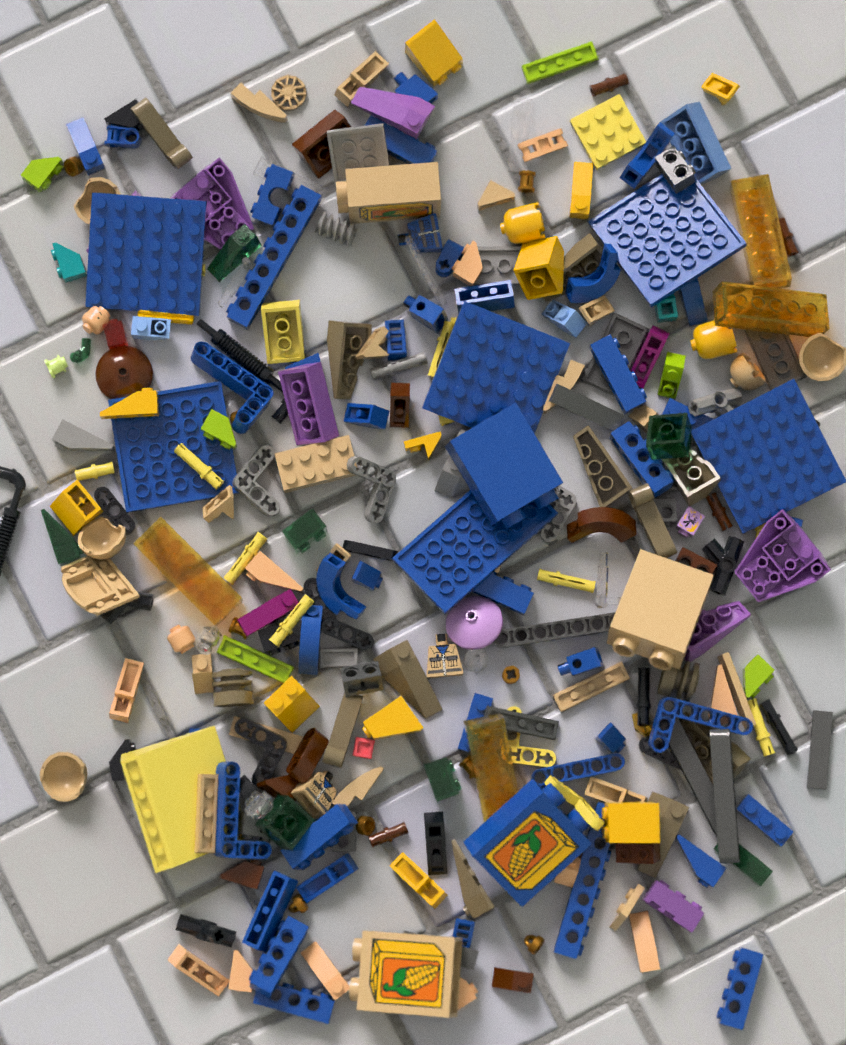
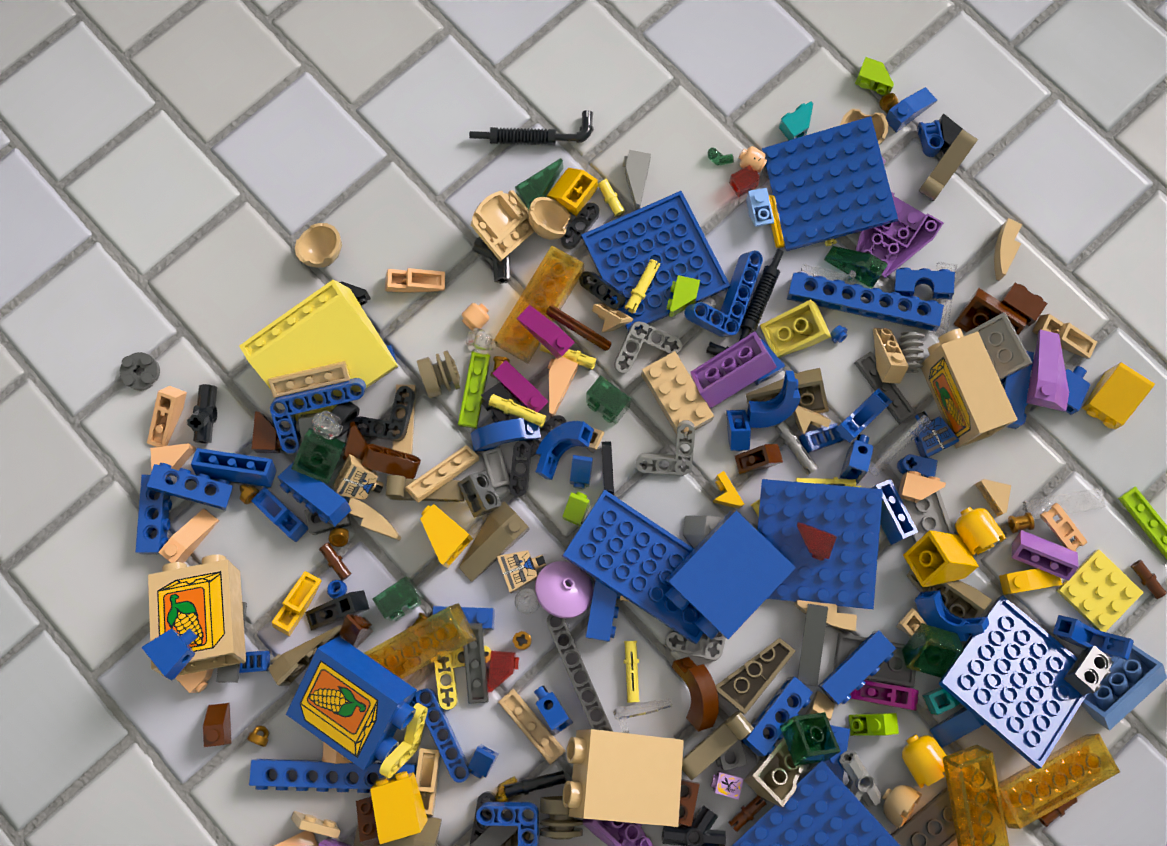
camera: 80 degrees right, 5 degrees down
(56, 365) = (698, 137): yellowish green brick -> none
(137, 376) = (711, 210): reddish brown dish -> none
(139, 404) = (682, 212): yellow slope -> none
(150, 982) = (132, 363): none -> dark grey plate
(190, 499) = (594, 289): none -> black beam
(202, 673) = (453, 343): tan slope -> none
(222, 572) = (545, 331): none -> magenta slope
(224, 540) = (578, 328): none -> reddish brown axle
(288, 92) = (1027, 273): tan wheel -> none
(291, 704) = (437, 432): yellow slope -> none
(299, 291) = (839, 334): none -> blue plate
(318, 106) = (1024, 302): none -> reddish brown brick
(332, 709) = (442, 473): none -> tan tile
(340, 252) = (889, 357): none -> tan slope
(358, 373) = (778, 409): none -> blue arch
(363, 264) = (900, 407): none -> dark grey tile
(363, 748) = (413, 515): coral tile -> none
(386, 294) = (863, 415): none -> blue arch
(401, 590) = (576, 508): none -> lime slope
(410, 838) = (333, 586): none -> blue plate
(439, 993) = (171, 651): none -> blue torso
(460, 827) = (355, 629): none -> reddish brown slope
(495, 375) = (817, 541): none -> clear red slope
(531, 700) = (501, 668): none -> clear red slope
(562, 171) = (1045, 555): none -> medium lavender brick
(564, 318) = (896, 598): light blue slope -> none
(620, 302) = (932, 650): none -> clear green brick

